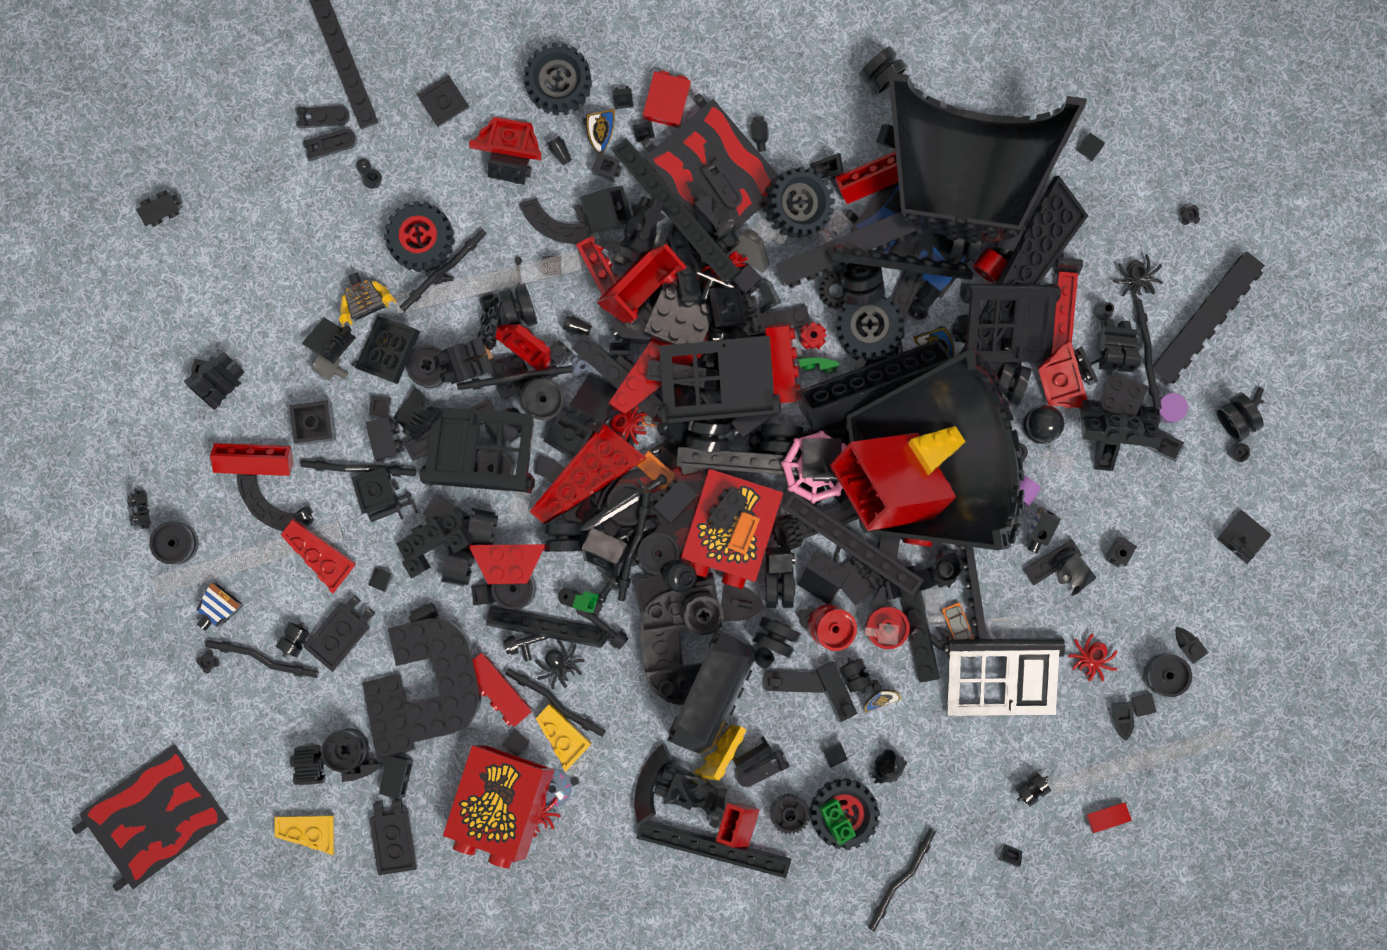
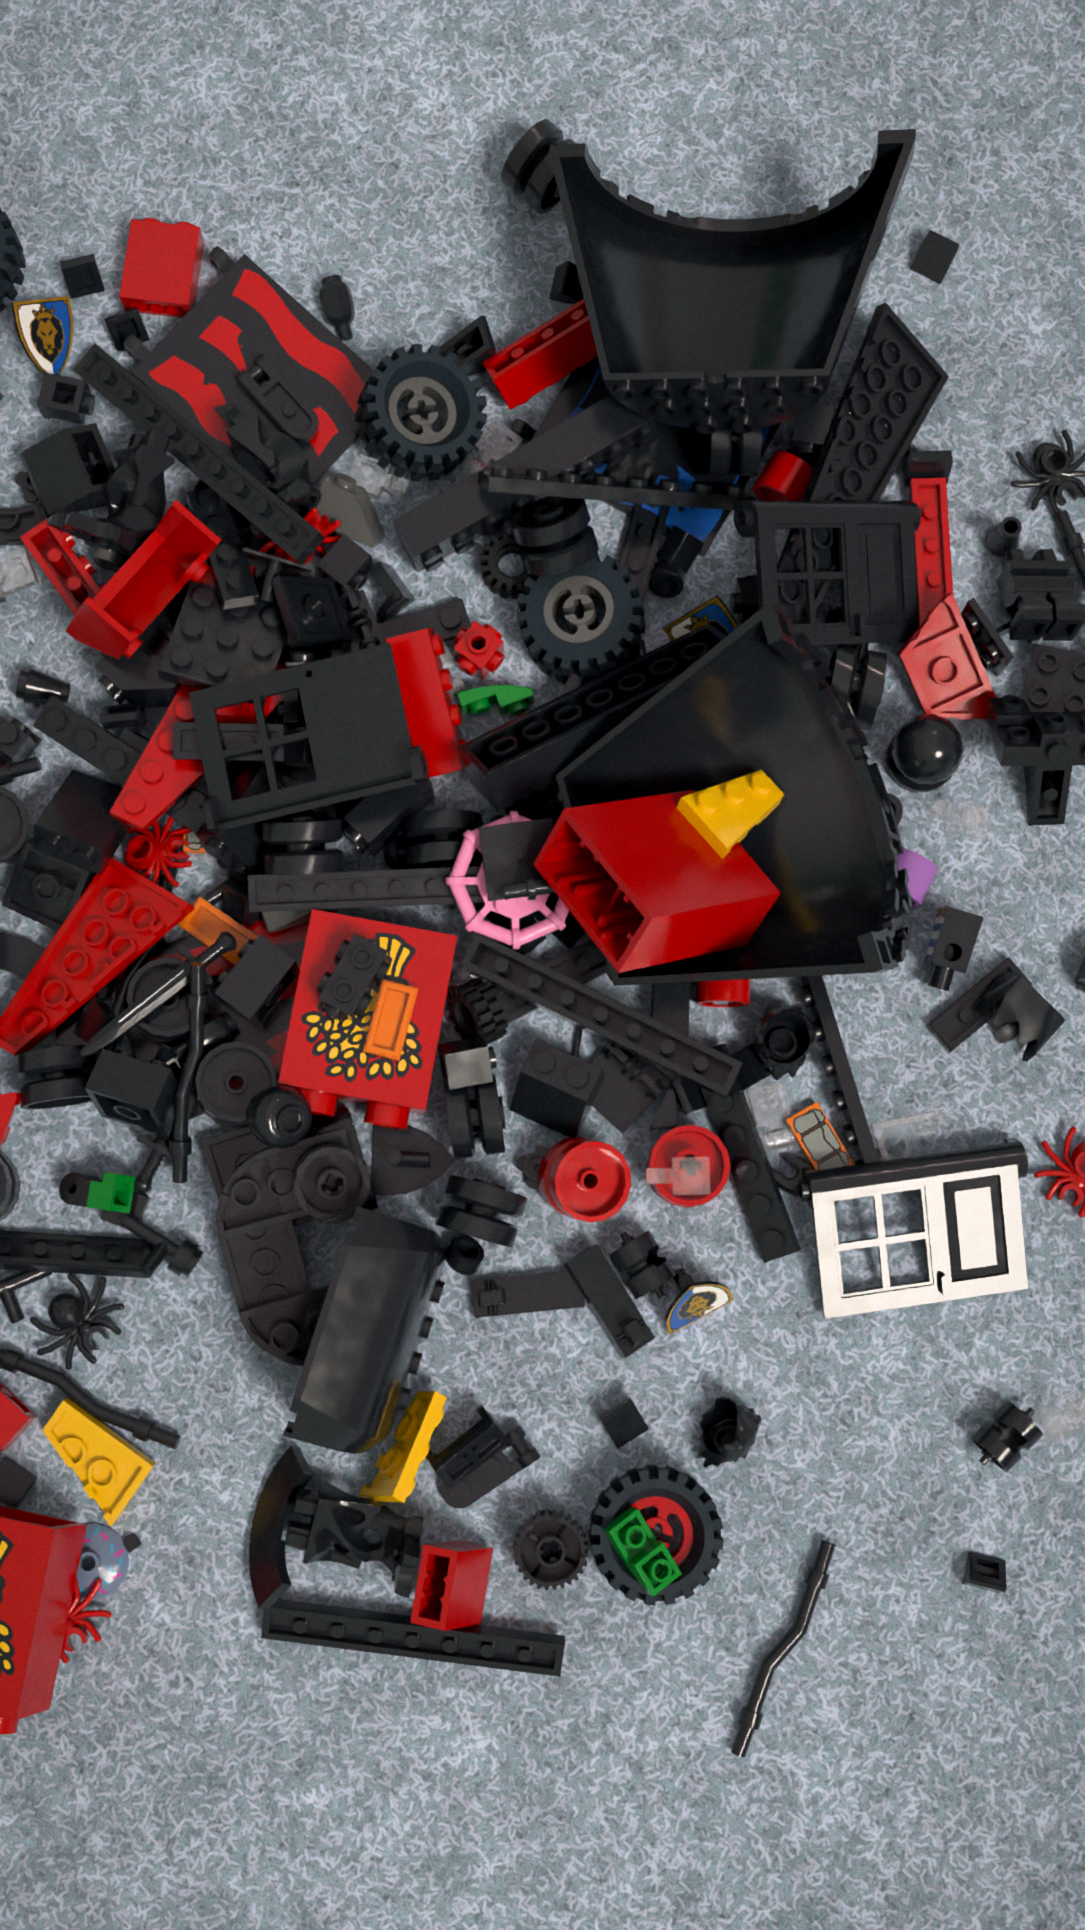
camera: 10 degrees left, 5 degrees down
(578, 370) = (57, 769): sand blue plate -> none

